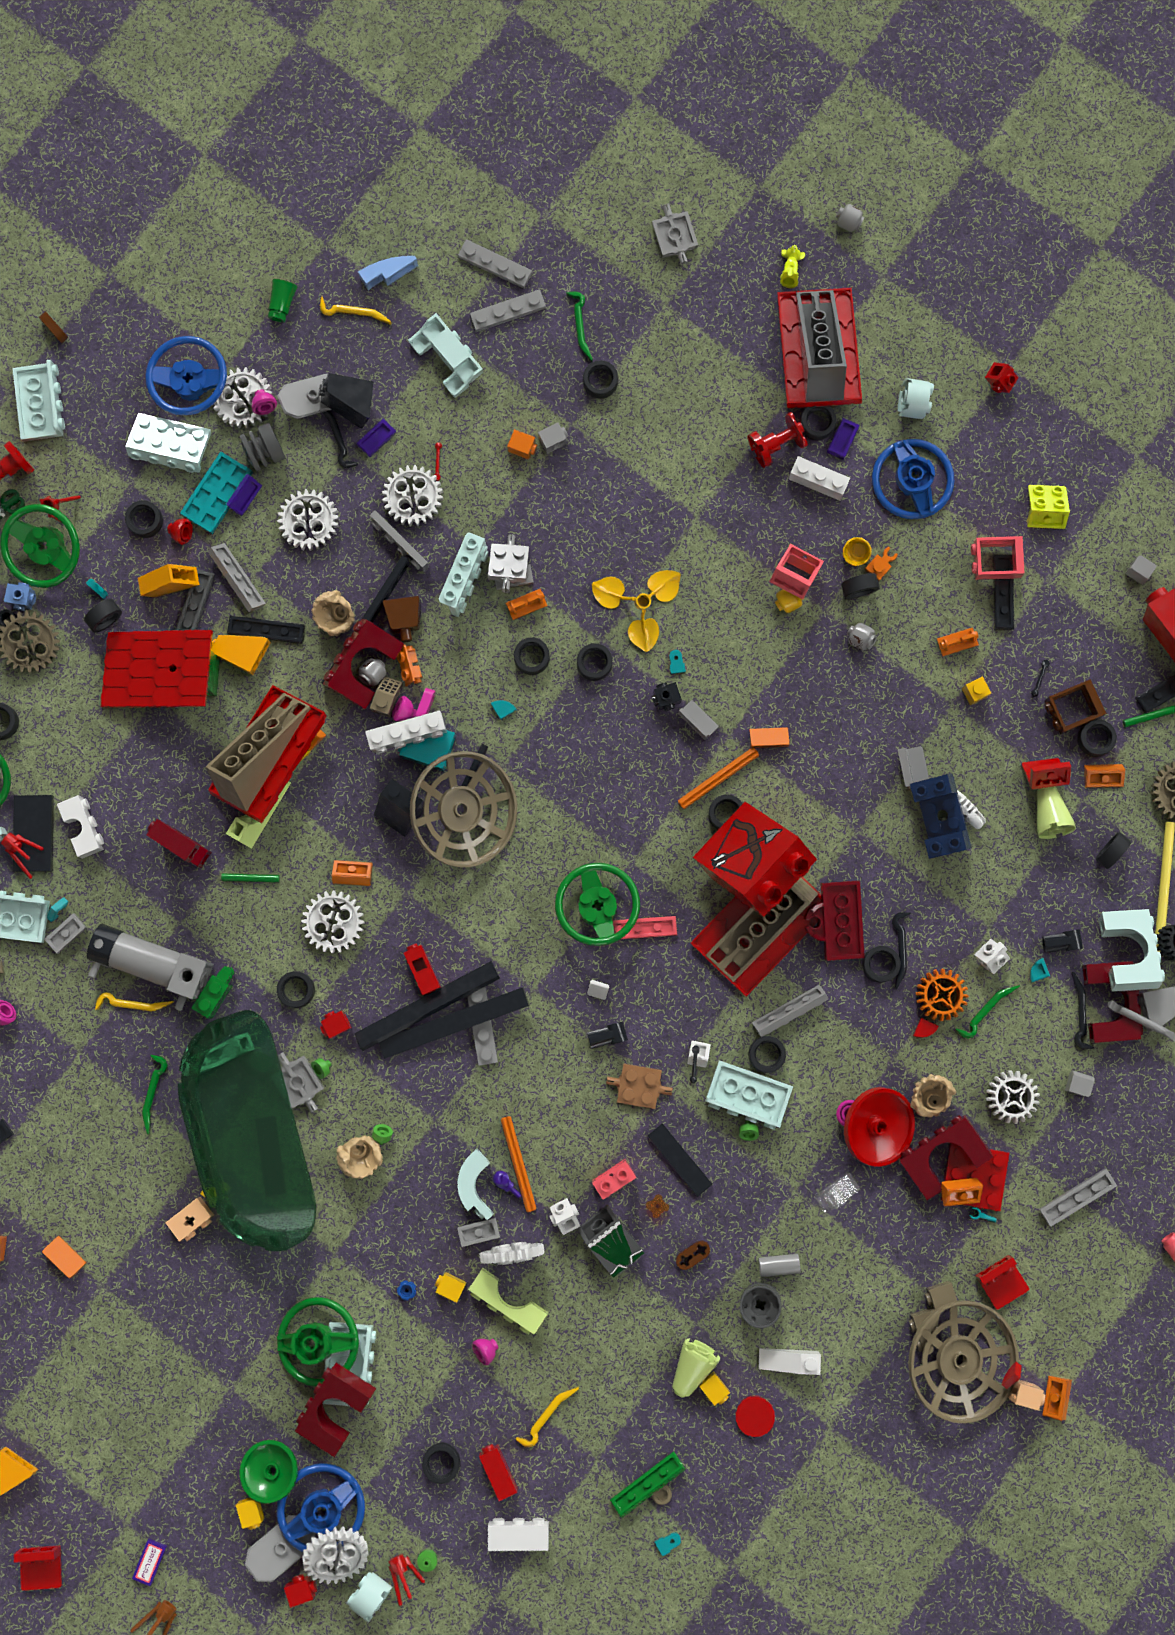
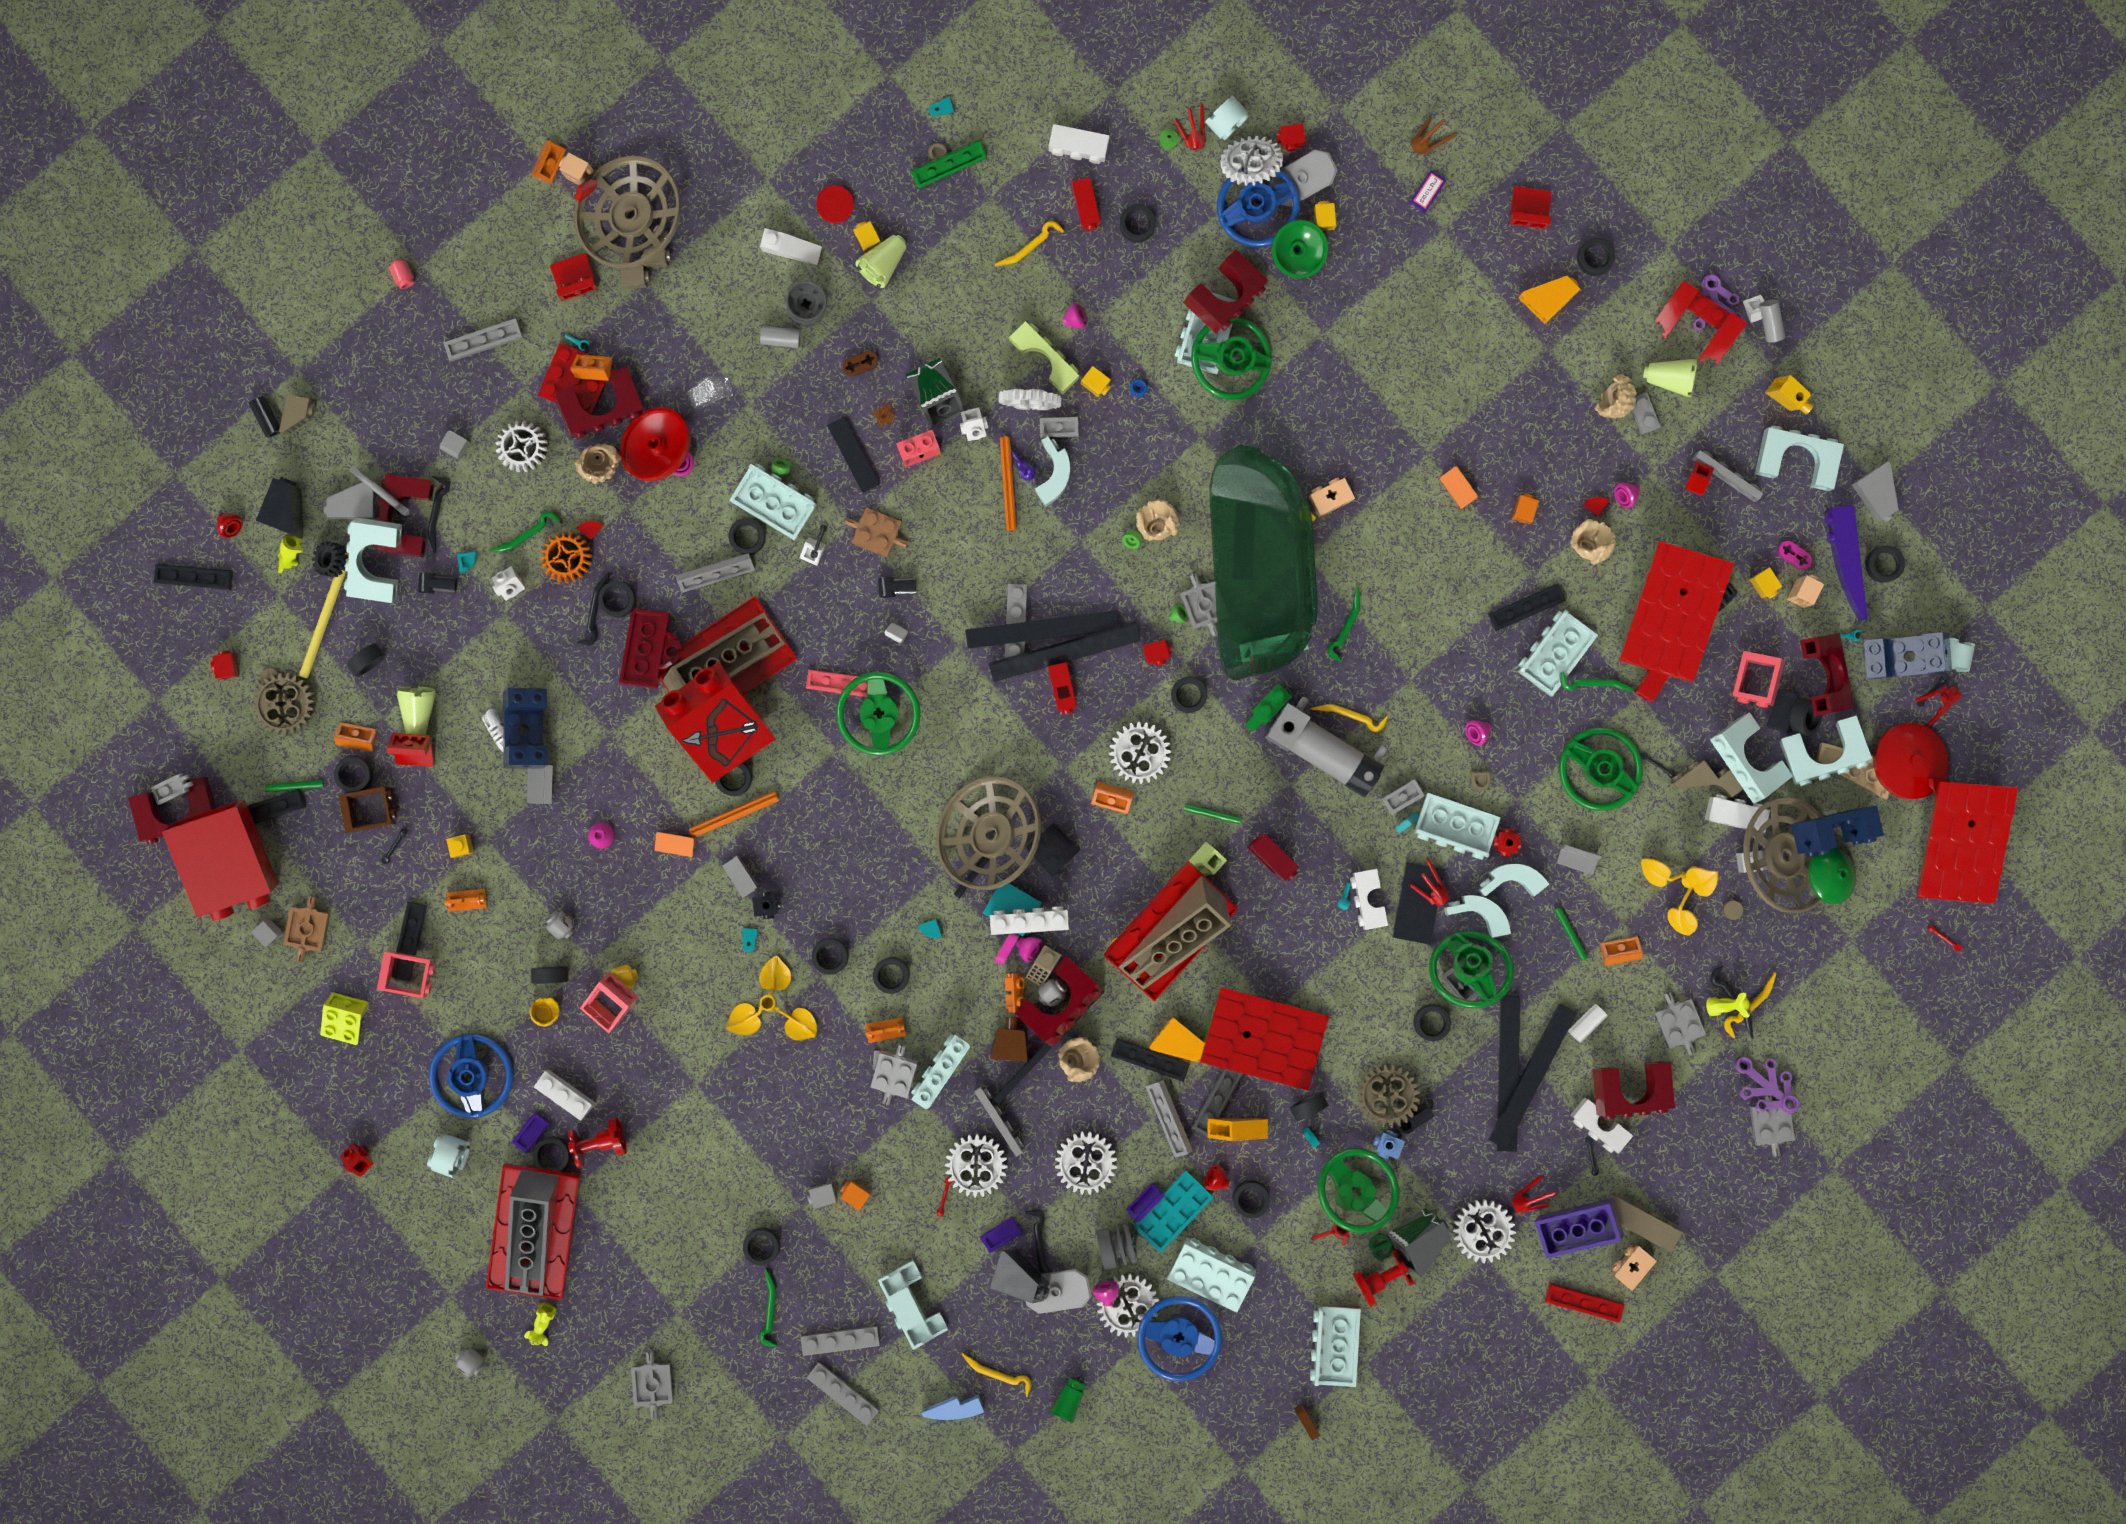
camera: 175 degrees left, 5 degrees up
(107, 819) = (1343, 903): none -> teal hand
(842, 731) = (601, 835): none -> dark pink brick
(880, 565) = (524, 993): orange plate -> none
(1104, 581) = (306, 929): none -> medium nougat plate

